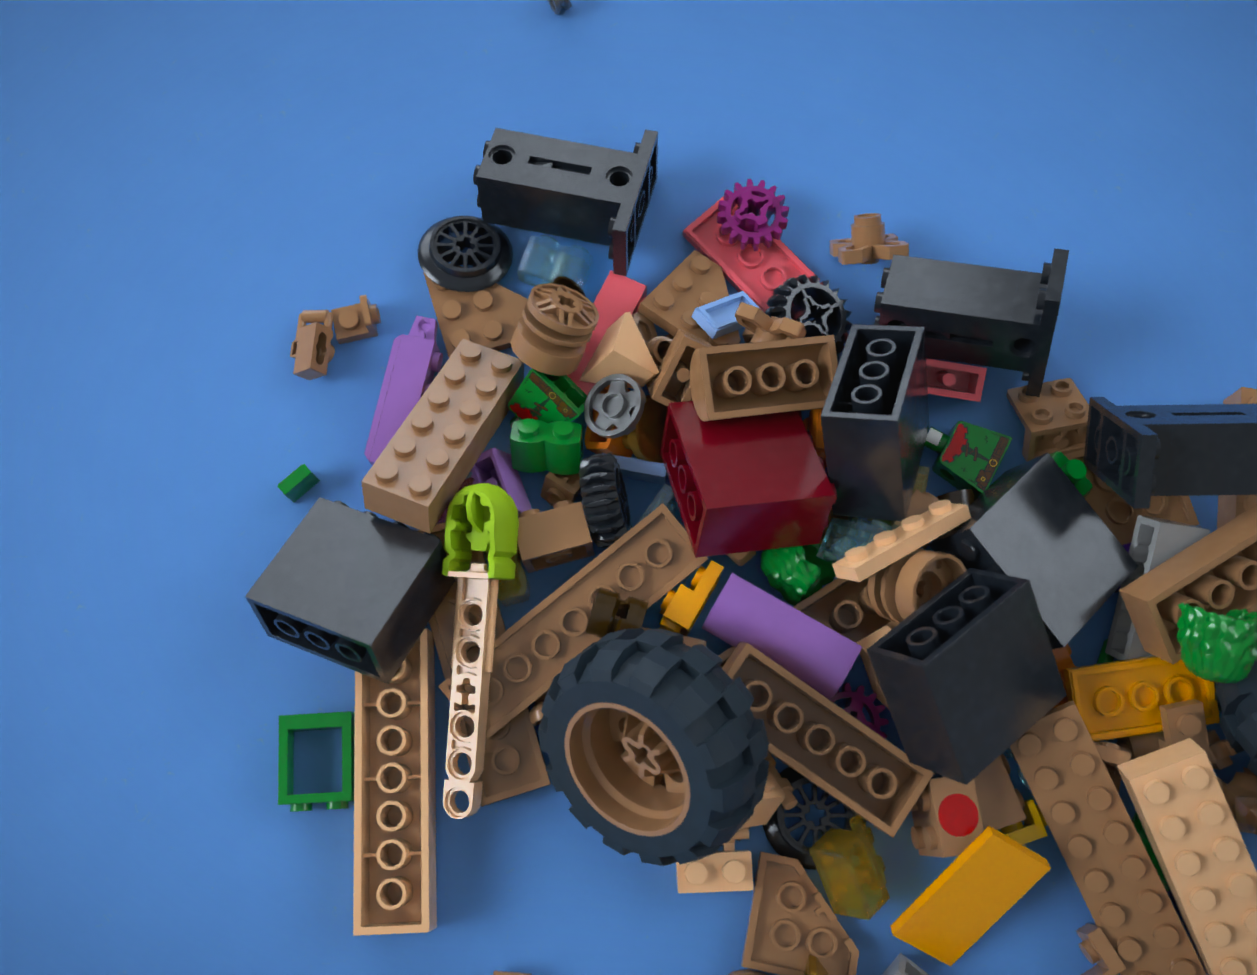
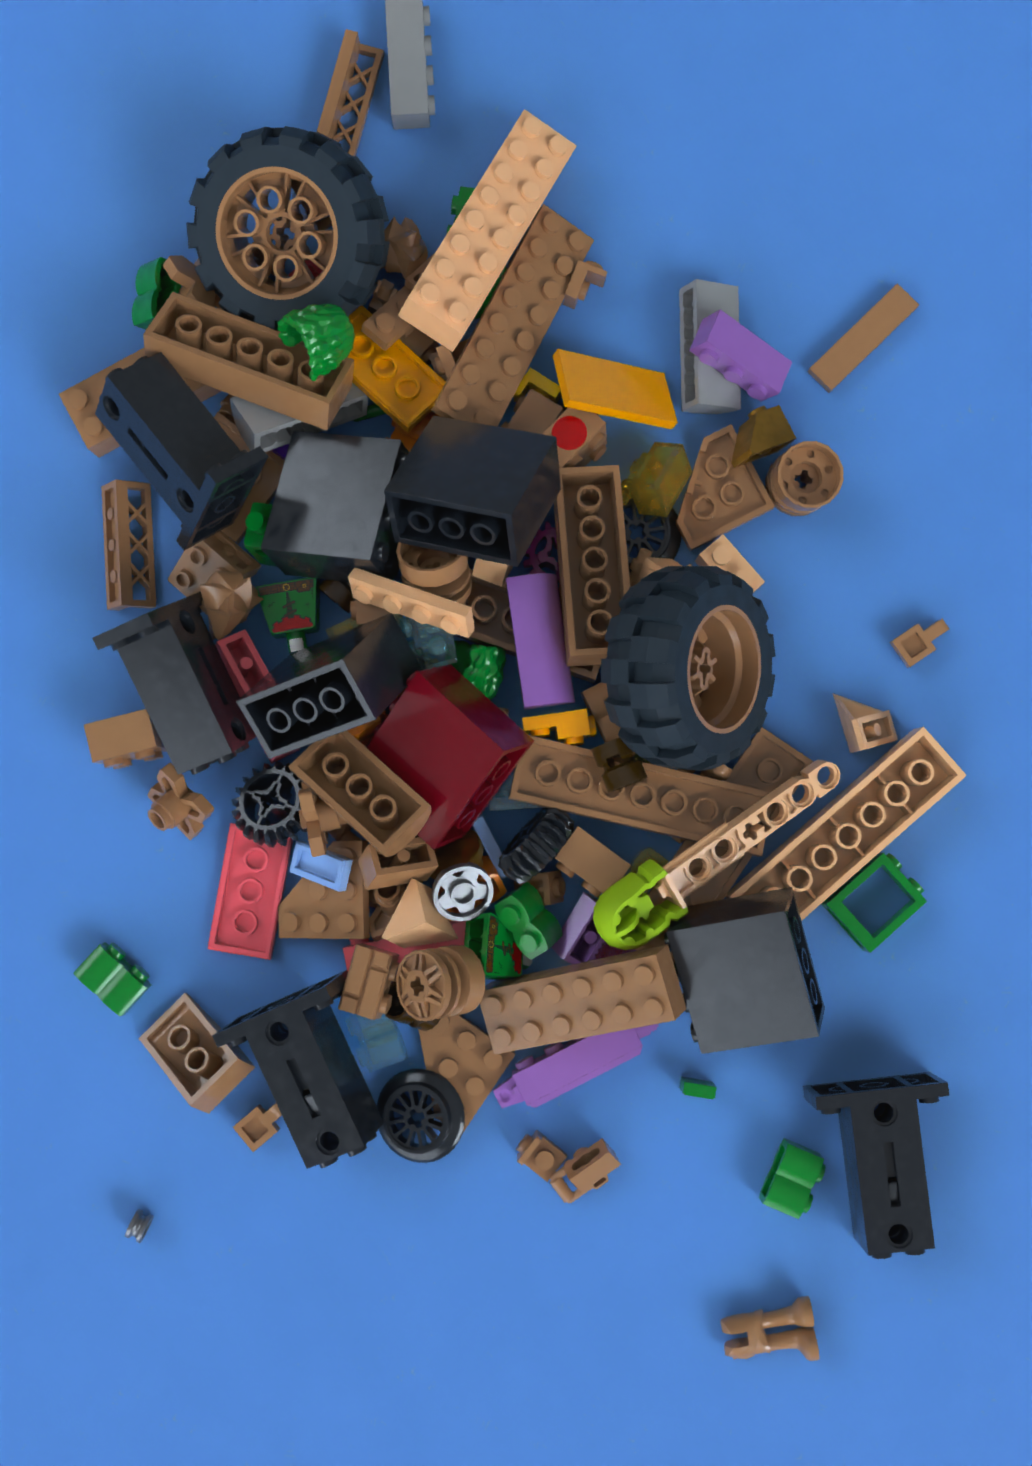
camera: 130 degrees left, 10 degrees up
(77, 372) = (758, 1342): none -> medium nougat piece
(112, 590) = (884, 1157): none -> black brick
(161, 502) = (792, 1178): none -> green brick
(475, 884) = (864, 725): none -> light nougat slope
(560, 125) = (258, 1126): none -> medium nougat plate
(602, 280) = (369, 982): none -> medium nougat brick
(674, 114) = (189, 1057): none -> medium nougat slope
(751, 219) = (213, 925): magenta gear -> none
(763, 106) = (113, 978): none -> green brick
(958, 232) = (123, 739): none -> medium nougat brick
(1016, 403) = (228, 601): none -> medium nougat hair
(1125, 353) = (117, 545): none -> medium nougat fence

